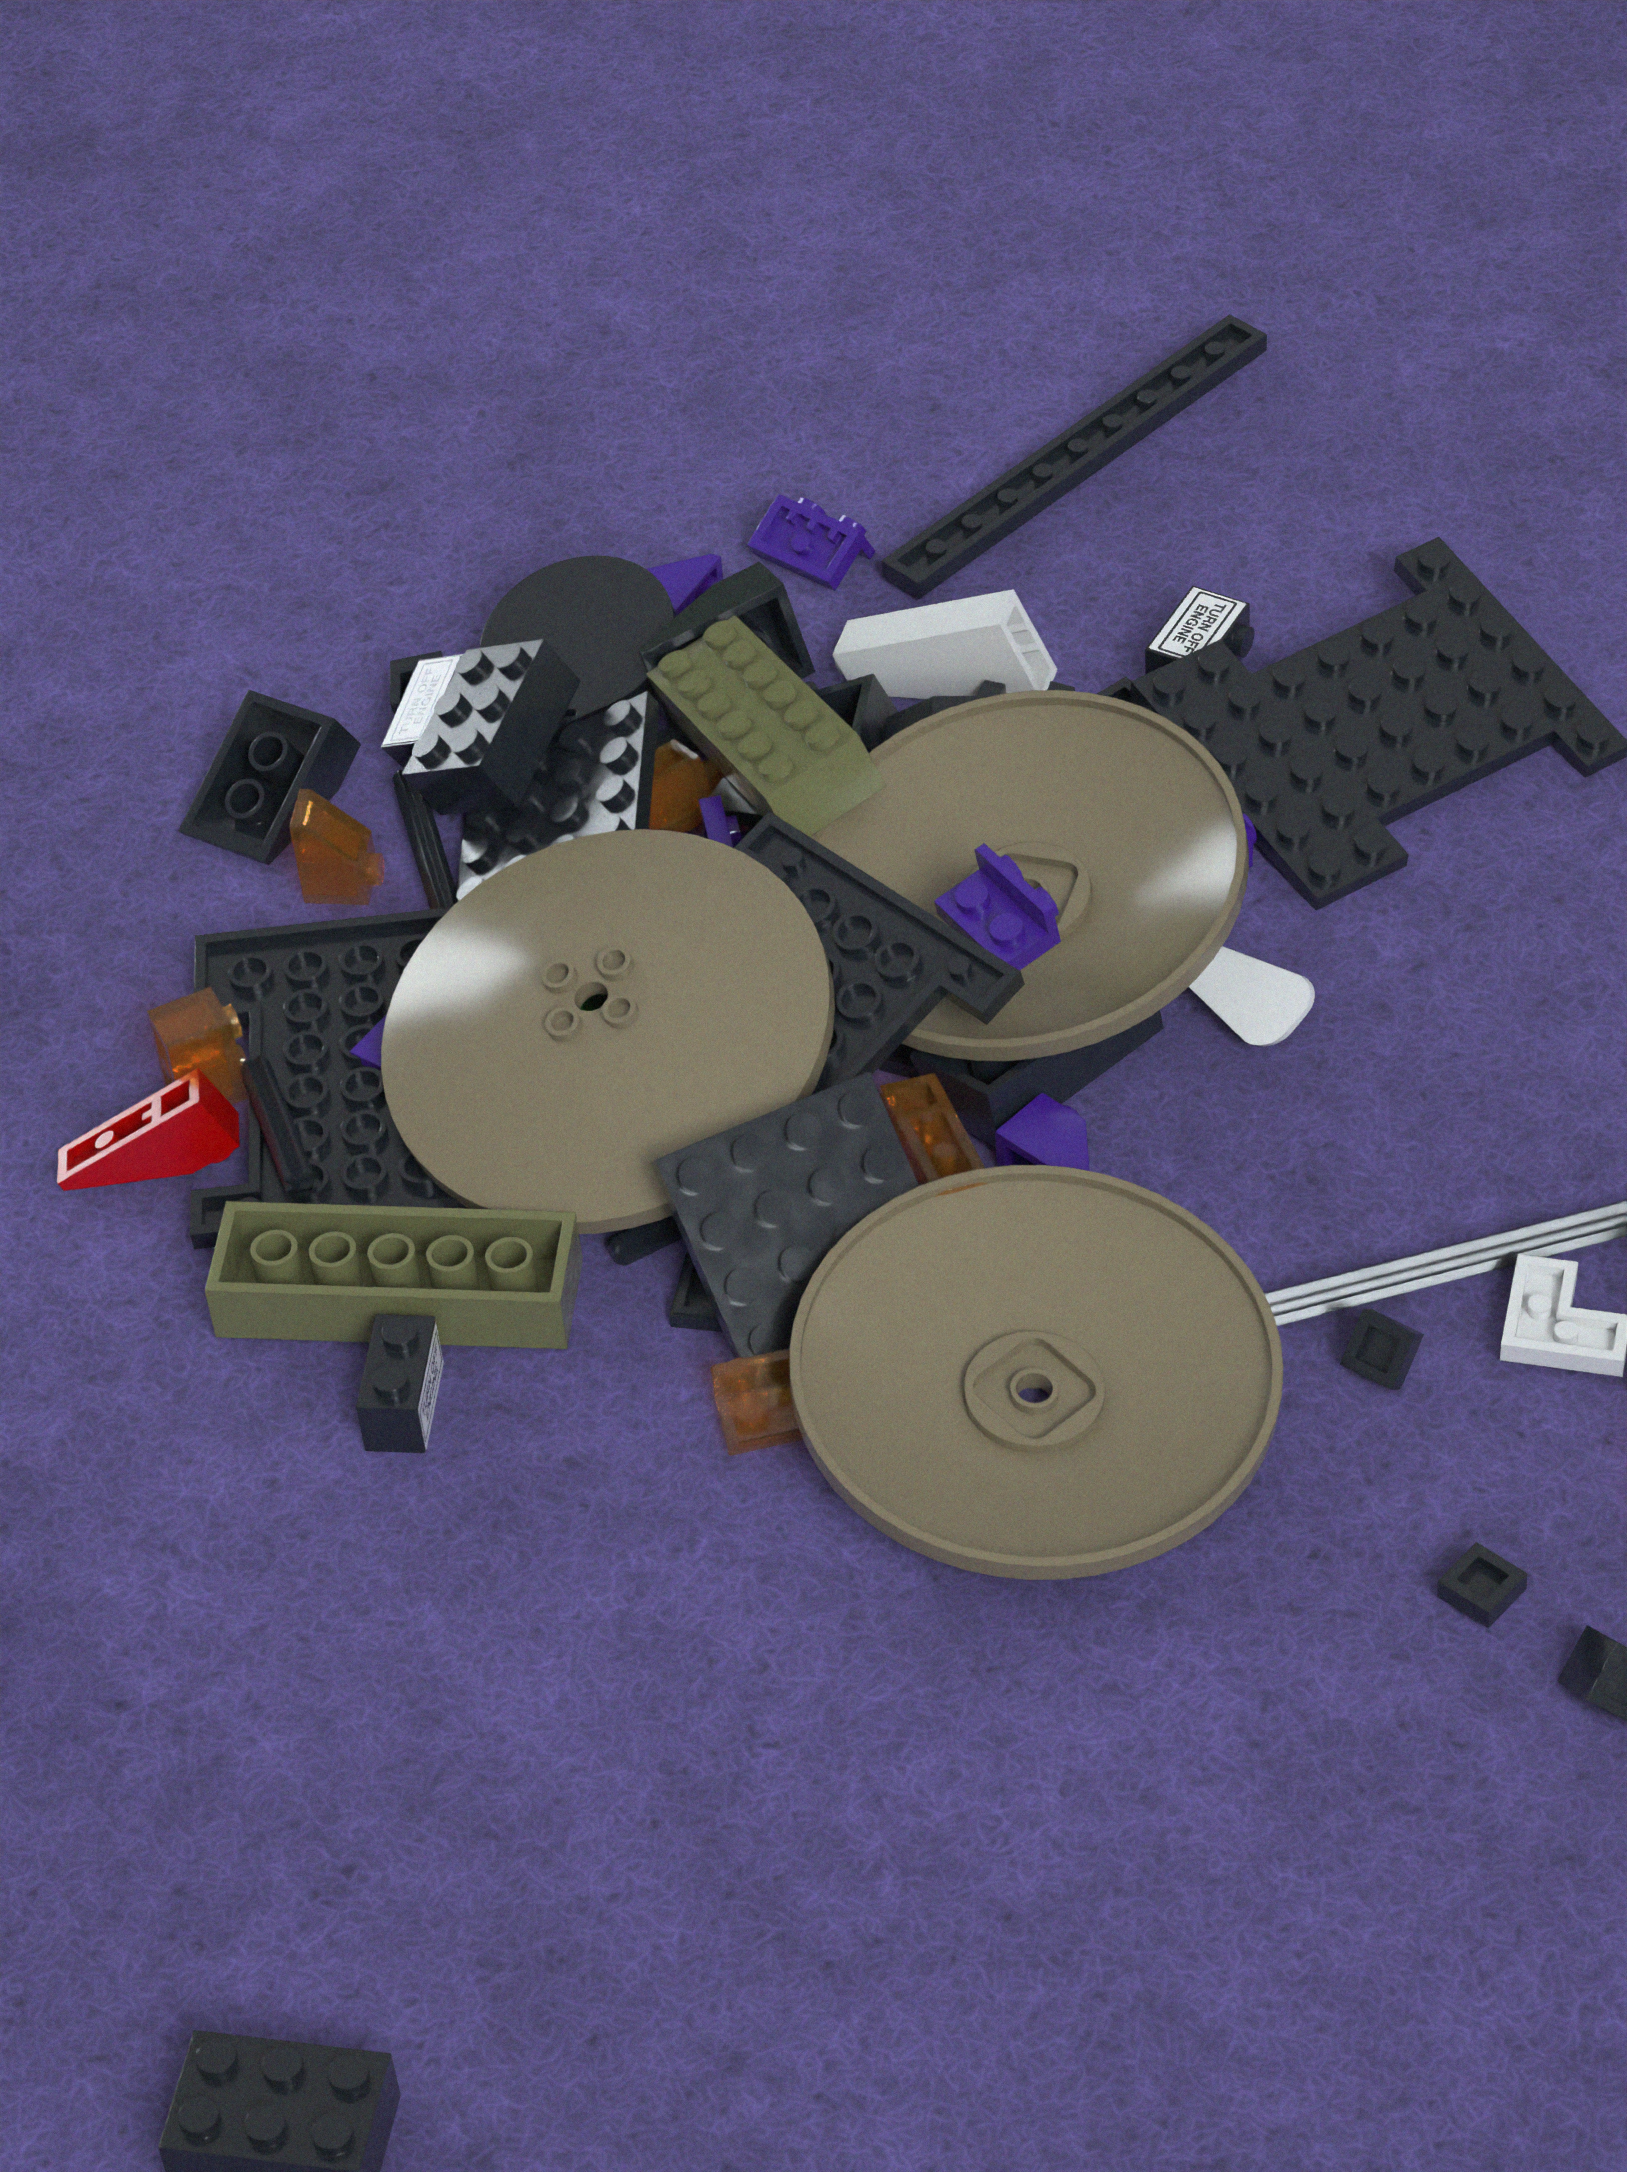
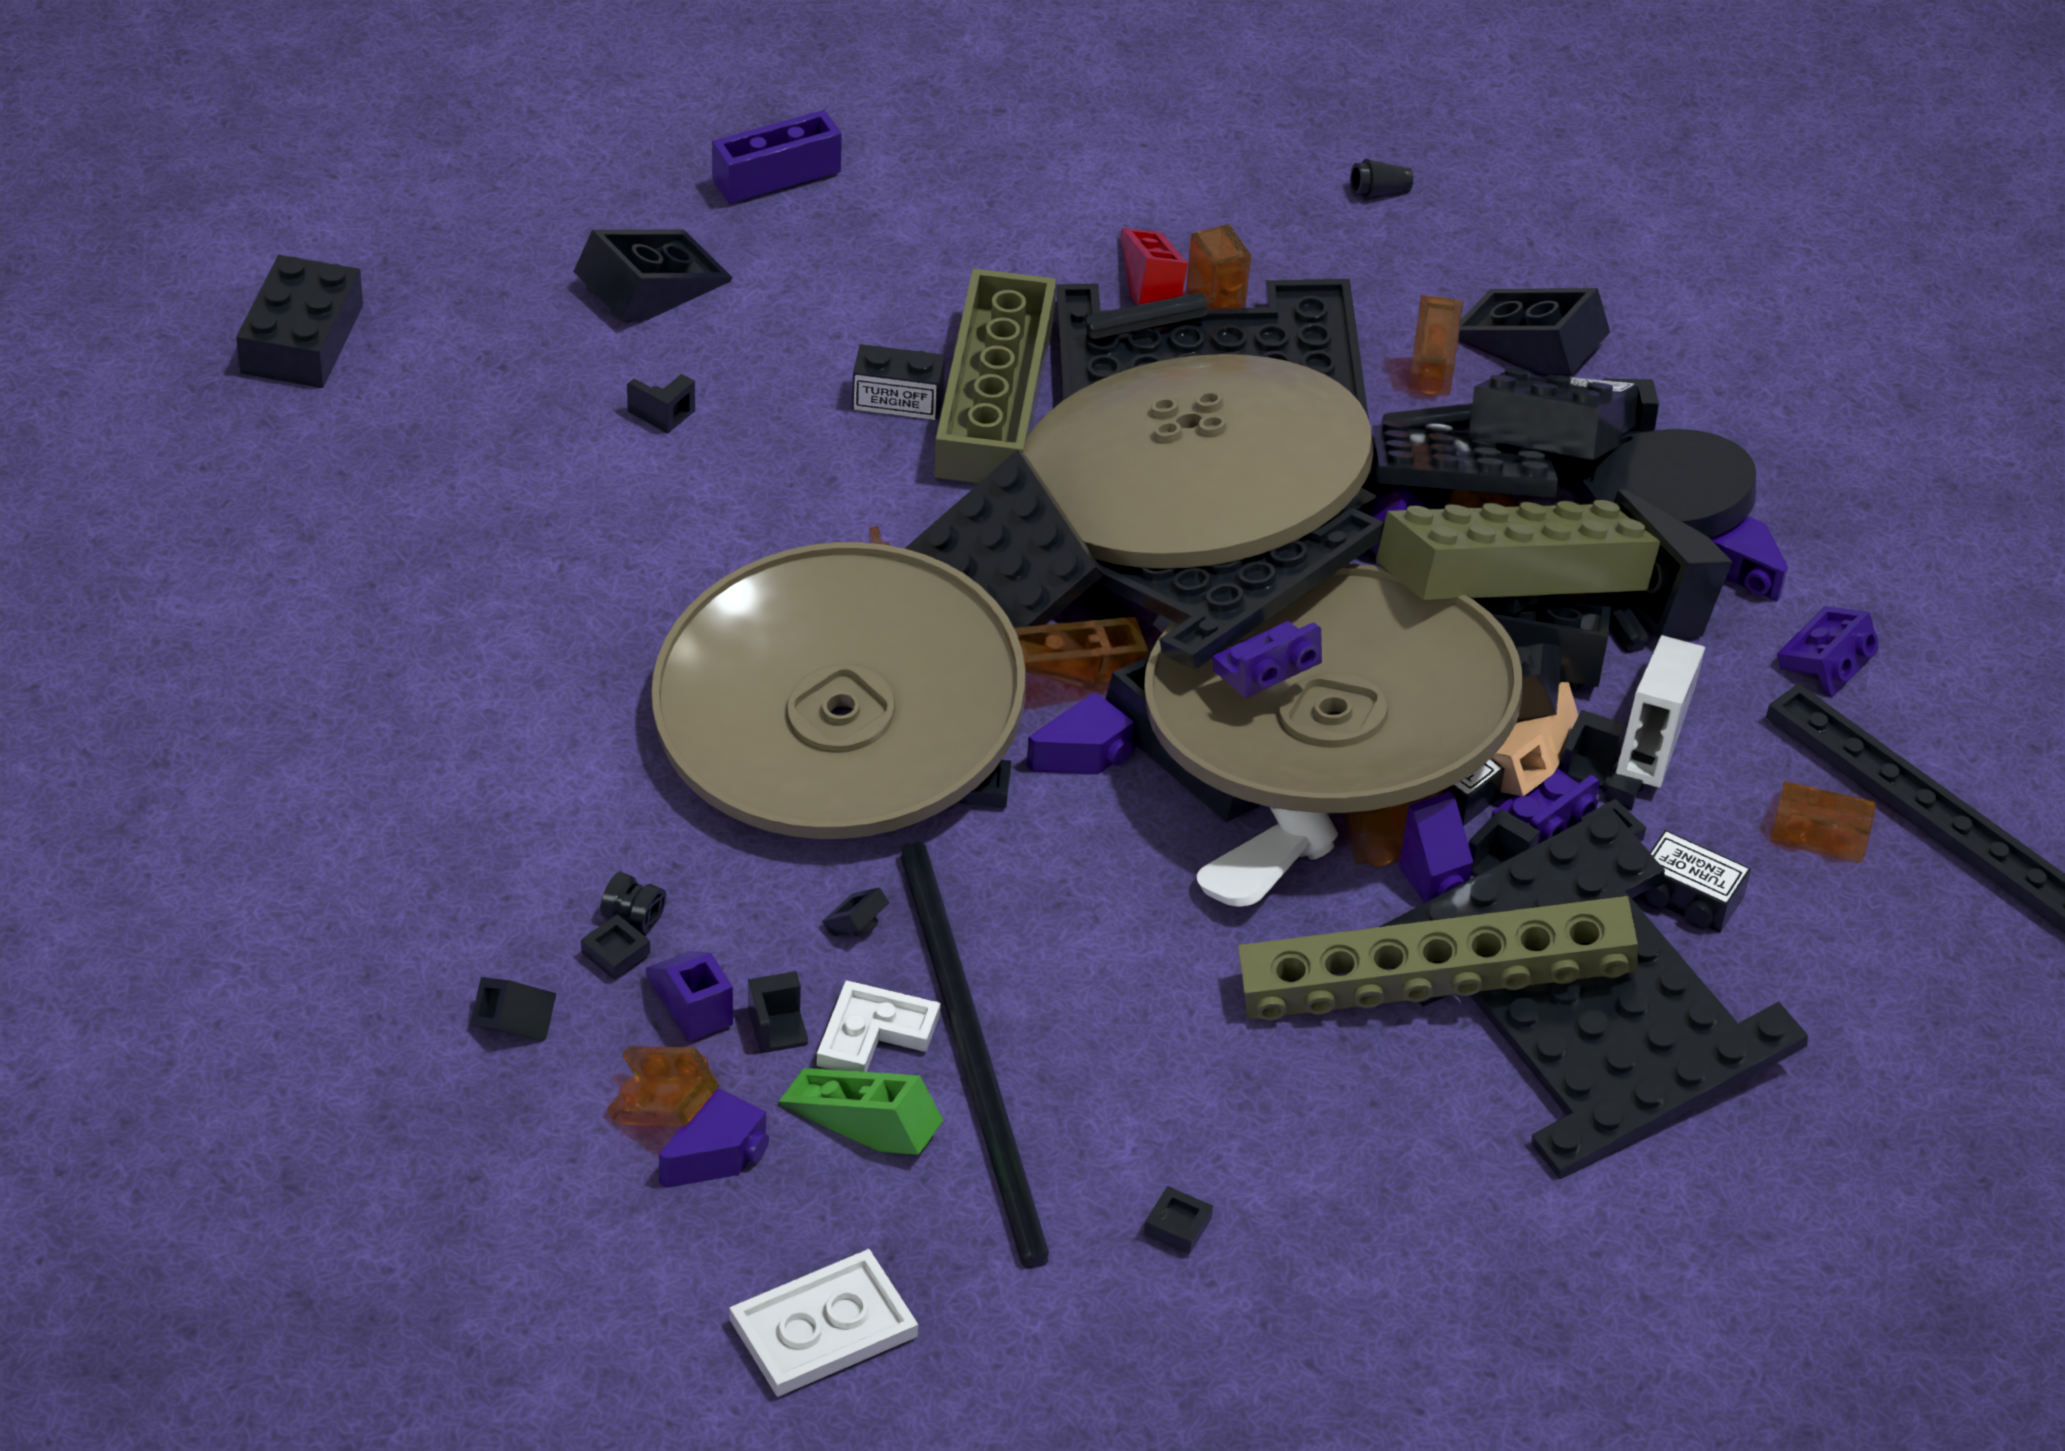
camera: 85 degrees right, 0 degrees up
(158, 1696) = (647, 271): none -> black slope
(445, 1653) = (660, 406): none -> black panel
(1080, 546) = (1823, 822): none -> clear orange bracket
(1388, 820) = (1455, 941): none -> olive brick
(1409, 1569) = (633, 901): none -> black wheel
(1549, 1487) = (694, 993): none -> dark purple slope
(1560, 1420) = (776, 1012): none -> black panel

